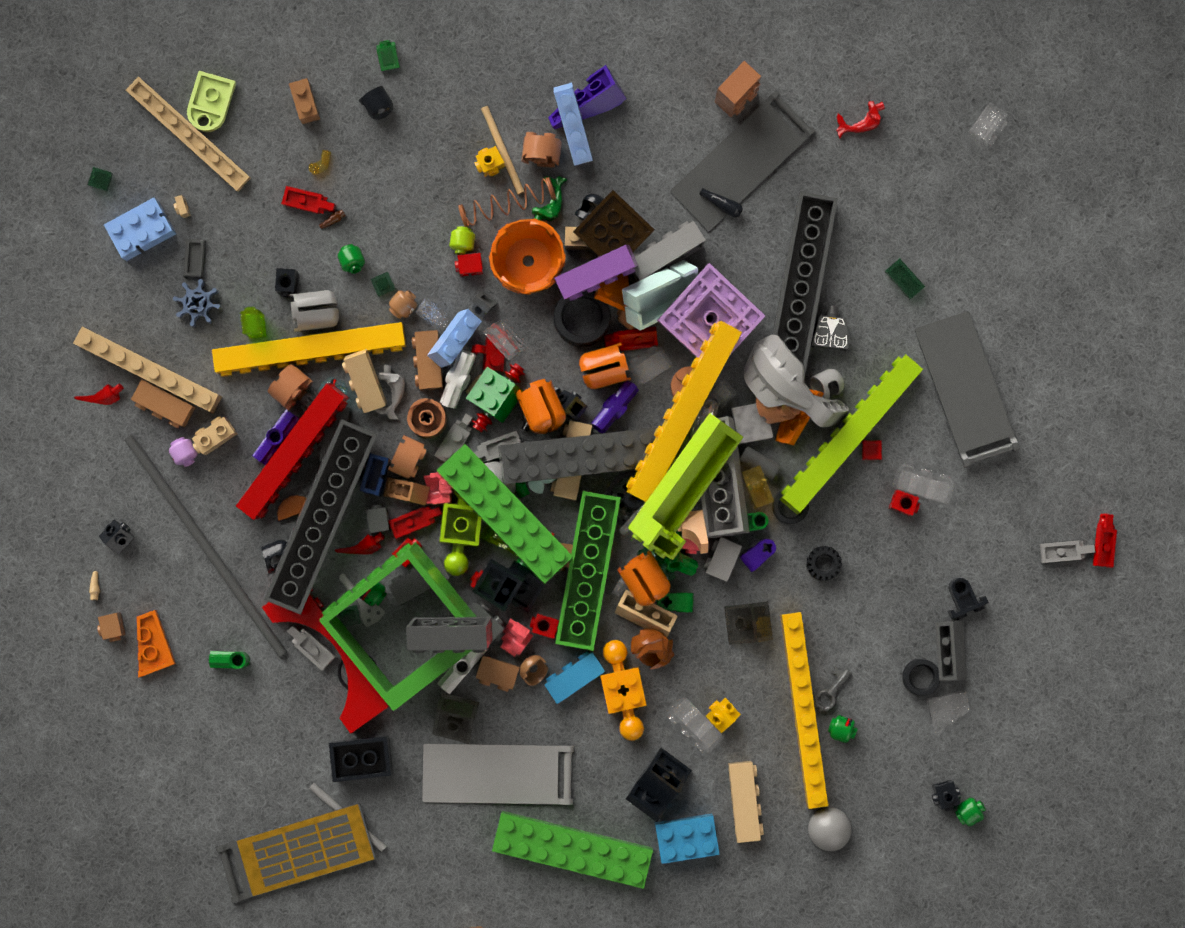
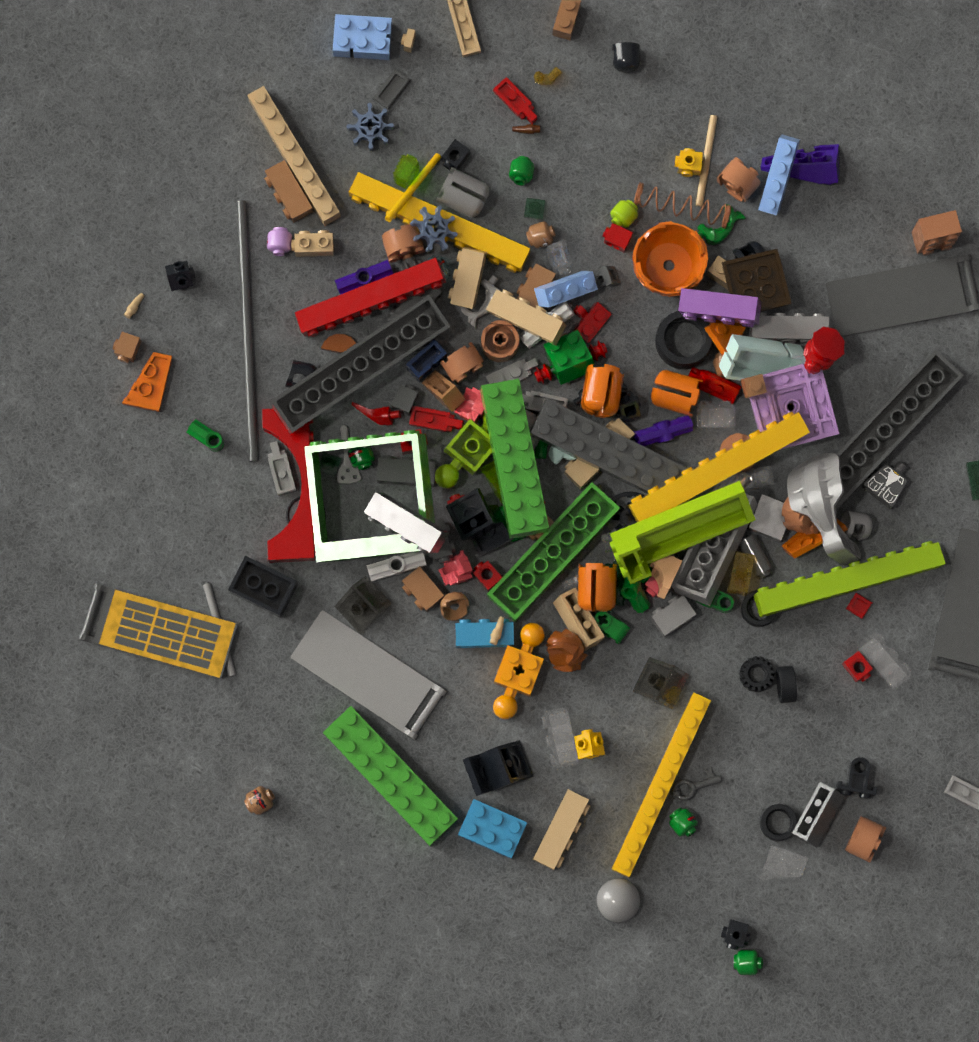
camera: 30 degrees right, 5 degrees down
(105, 396) = (245, 156): red bar -> none
(267, 333) = (412, 188): none -> yellow piece
(313, 353) = (428, 233): none -> sand blue gear
(387, 55) = (660, 23): green bracket -> none
(436, 385) = (526, 317): none -> tan brick
(506, 338) = (609, 317): clear slope -> none
(584, 671) = (496, 633): none -> tan piece
(669, 322) = (753, 386): none -> medium nougat brick
(708, 253) = (823, 350): none -> red piece
(727, 205) = (866, 323): black piece -> none
(755, 556) = (702, 630): dark purple piece -> none
(855, 557) = (786, 684): none -> black tyre
(1003, 645) = (865, 839): none -> nougat brick

